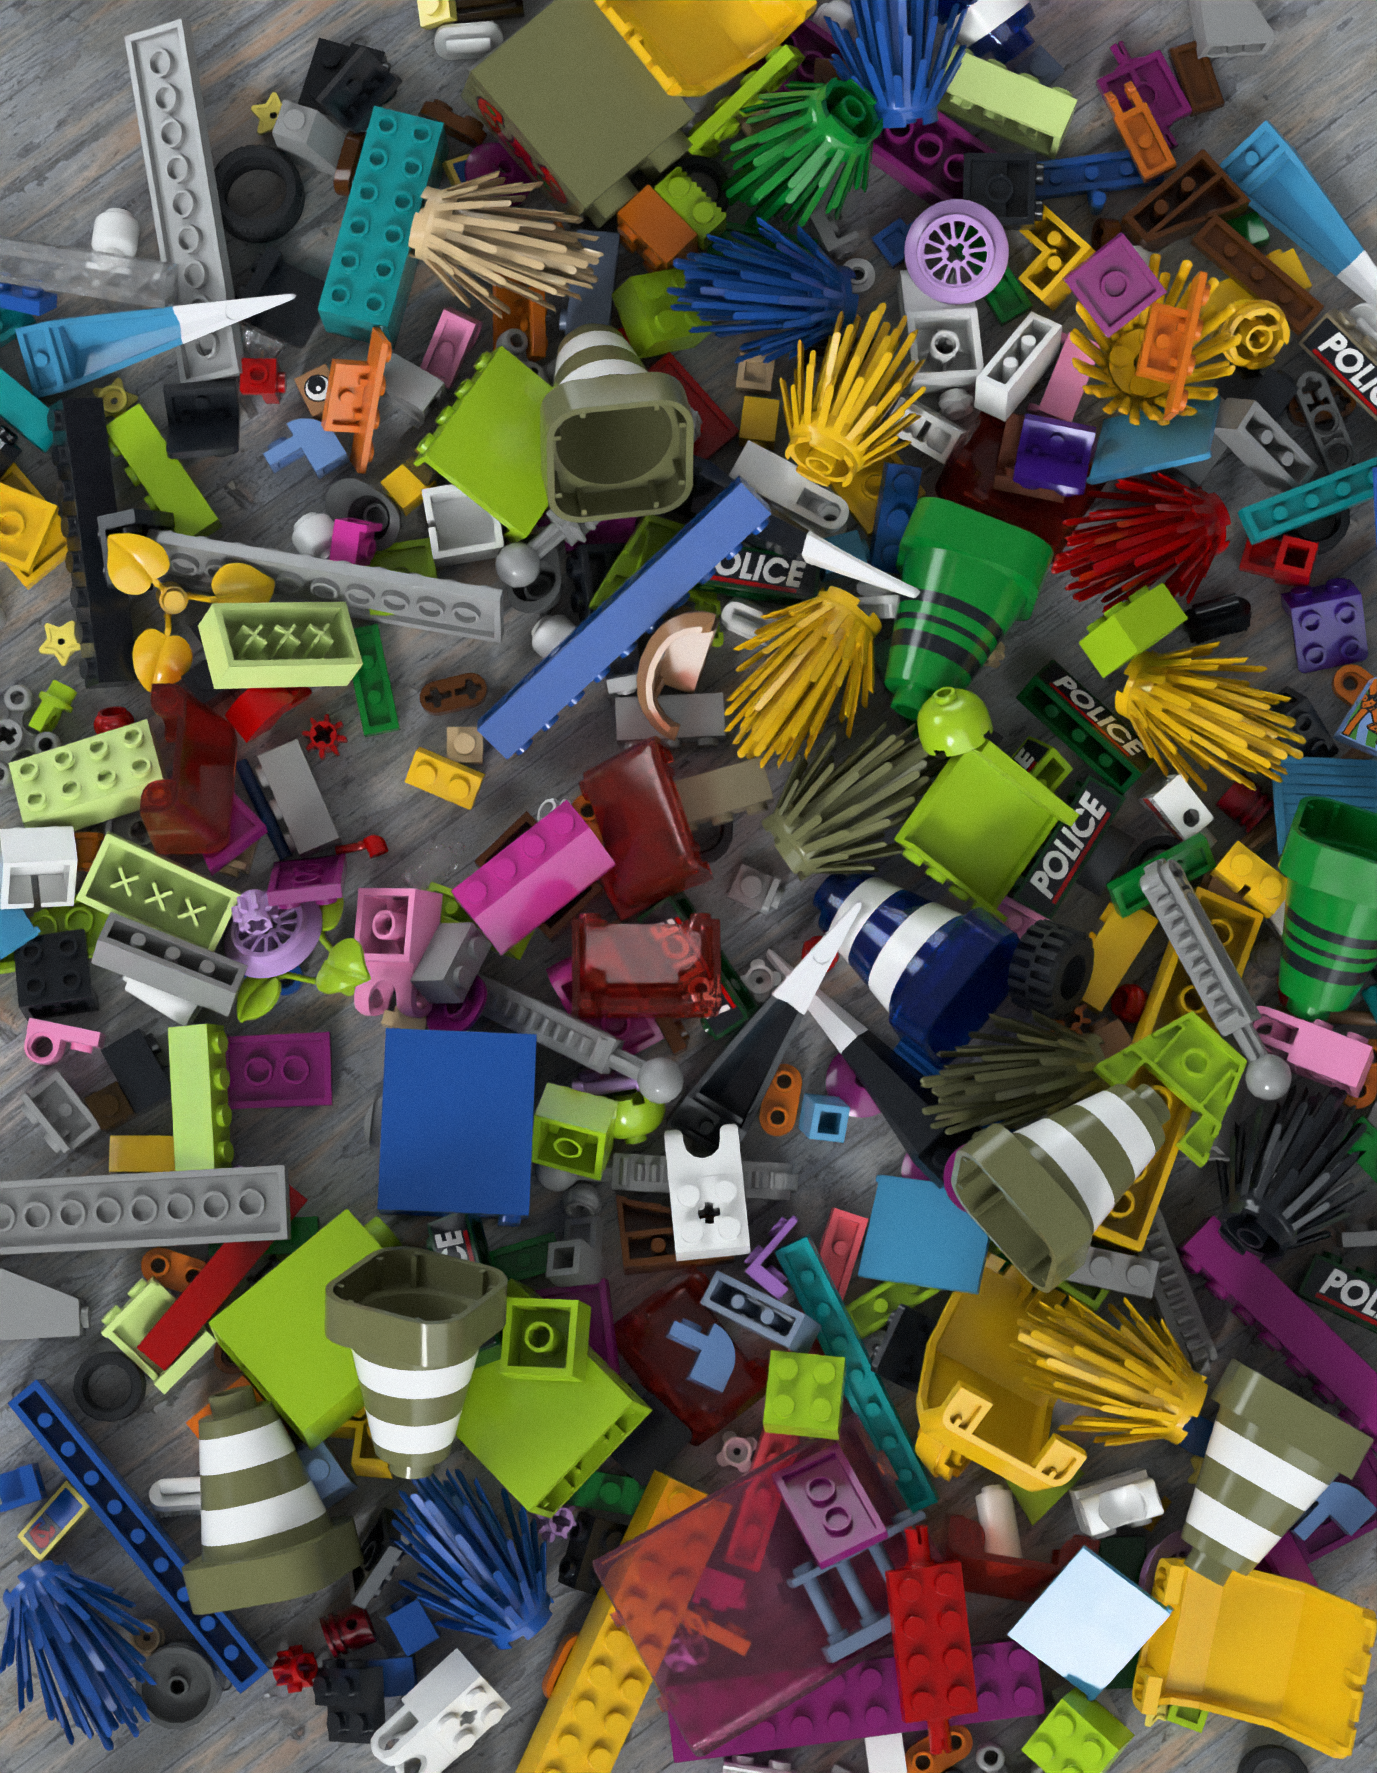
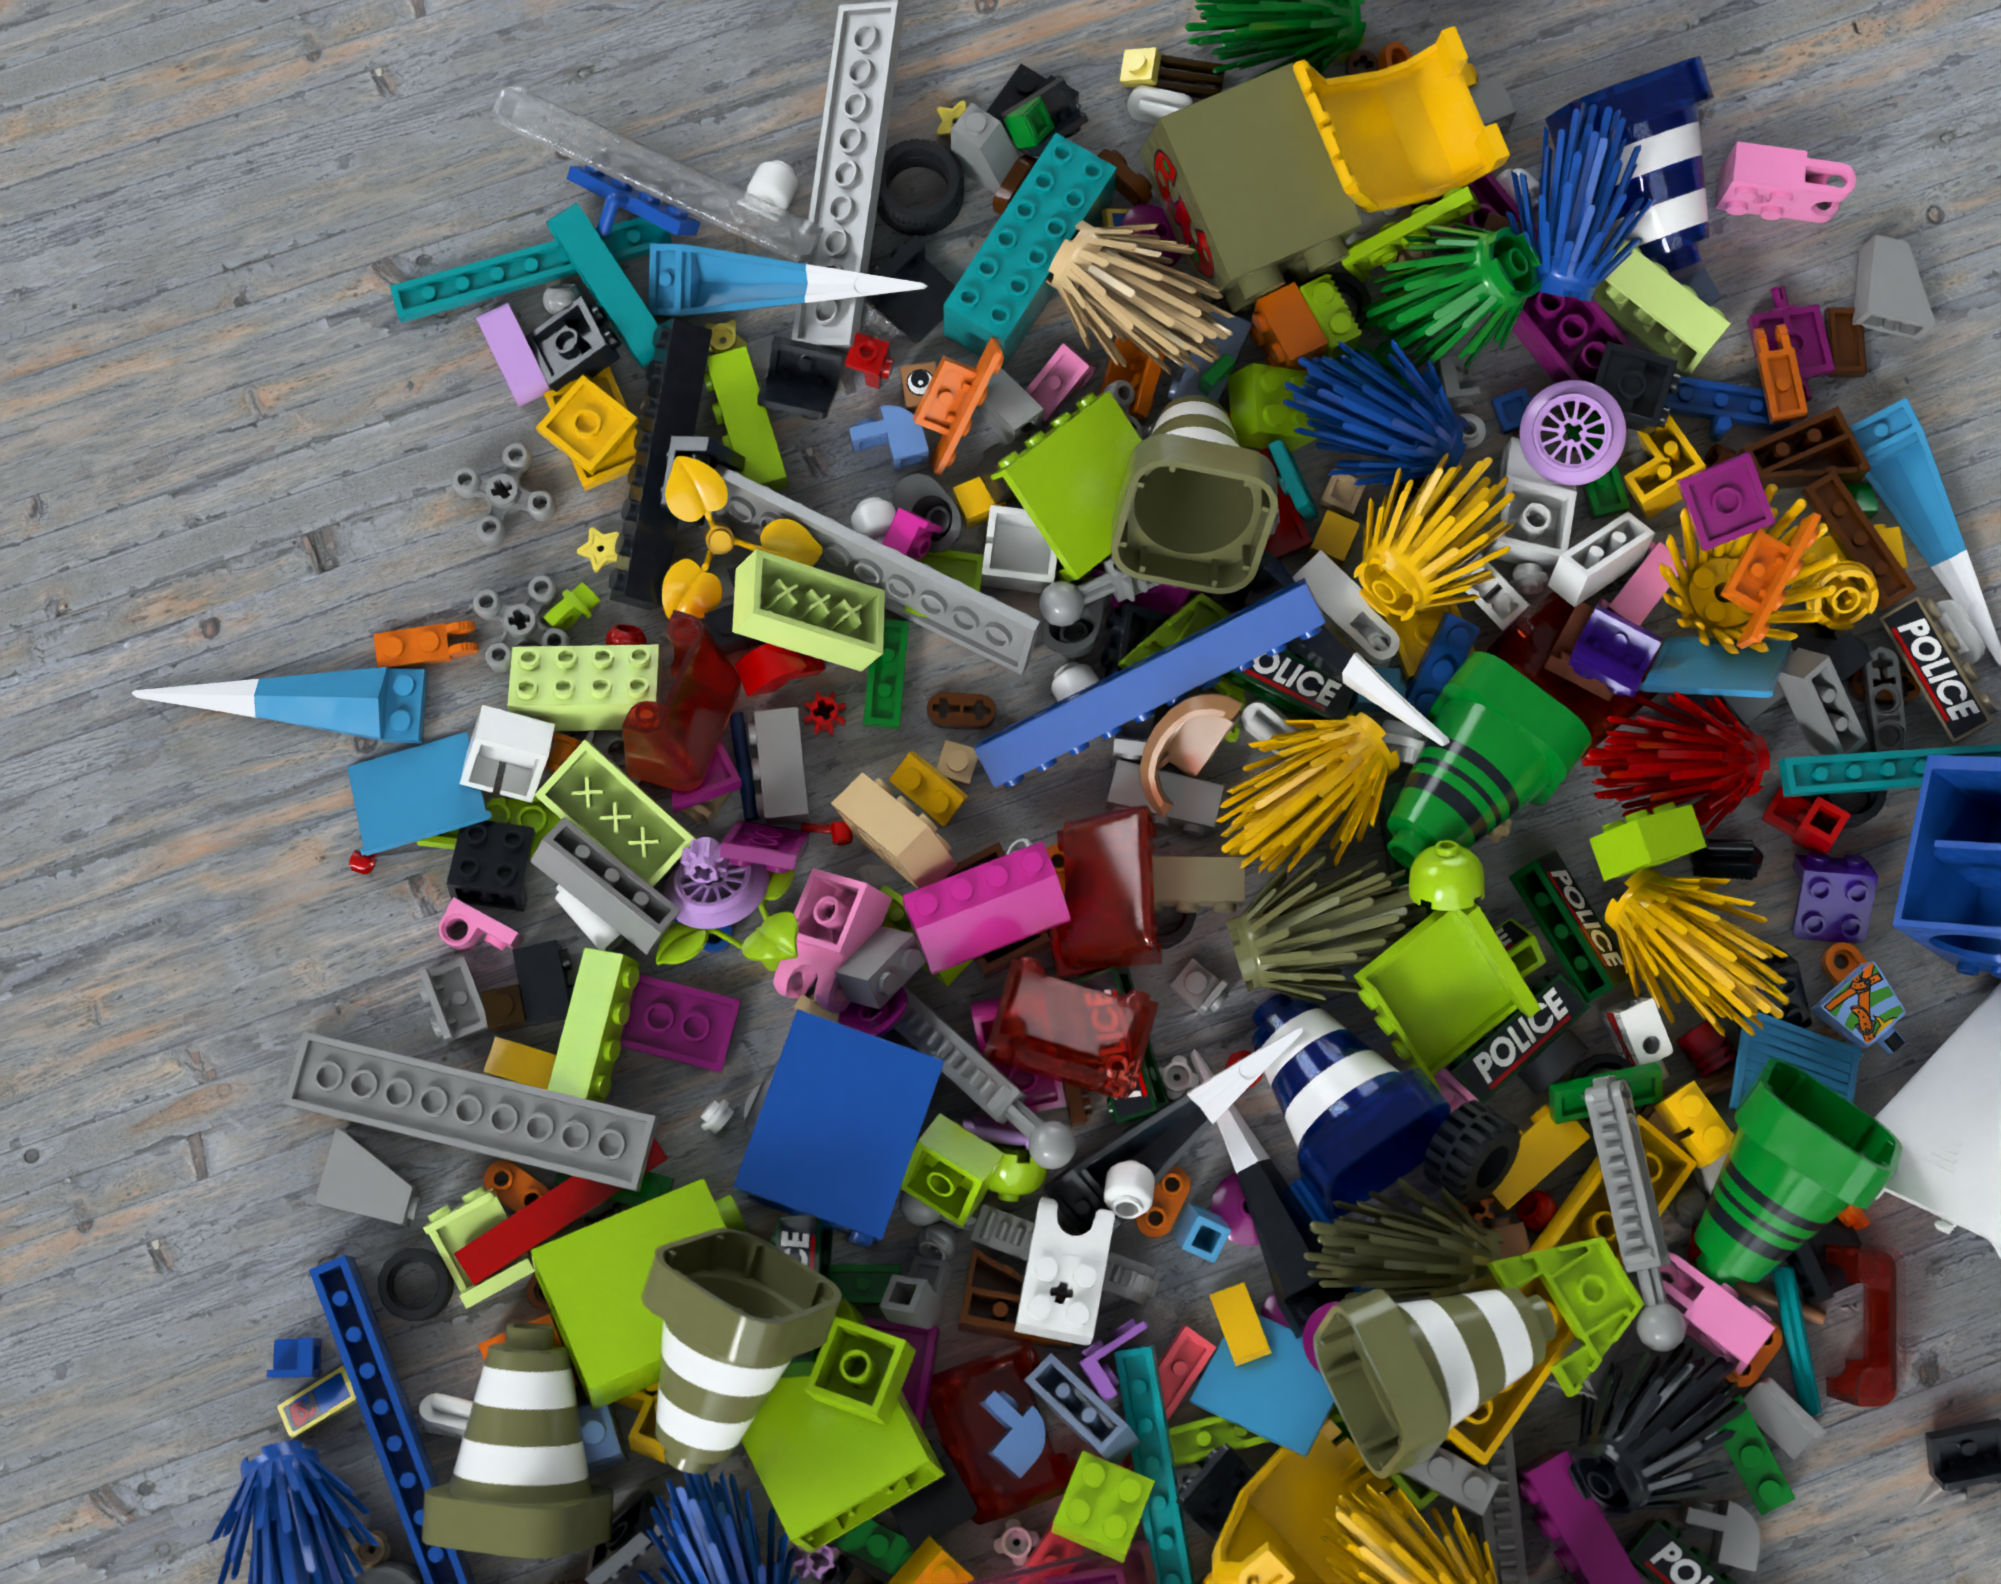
camera: 10 degrees right, 5 degrees down
(340, 1146) = (716, 1115): none -> white plate
(346, 101) = (1029, 123): none -> green slope
(425, 832) = (895, 832): none -> tan brick
(599, 296) = (1216, 374): none -> green tile
(703, 377) = (1292, 481): none -> teal plate
(744, 1098) = (1129, 1189): none -> white head
(884, 1191) = (1240, 1324): none -> yellow tile

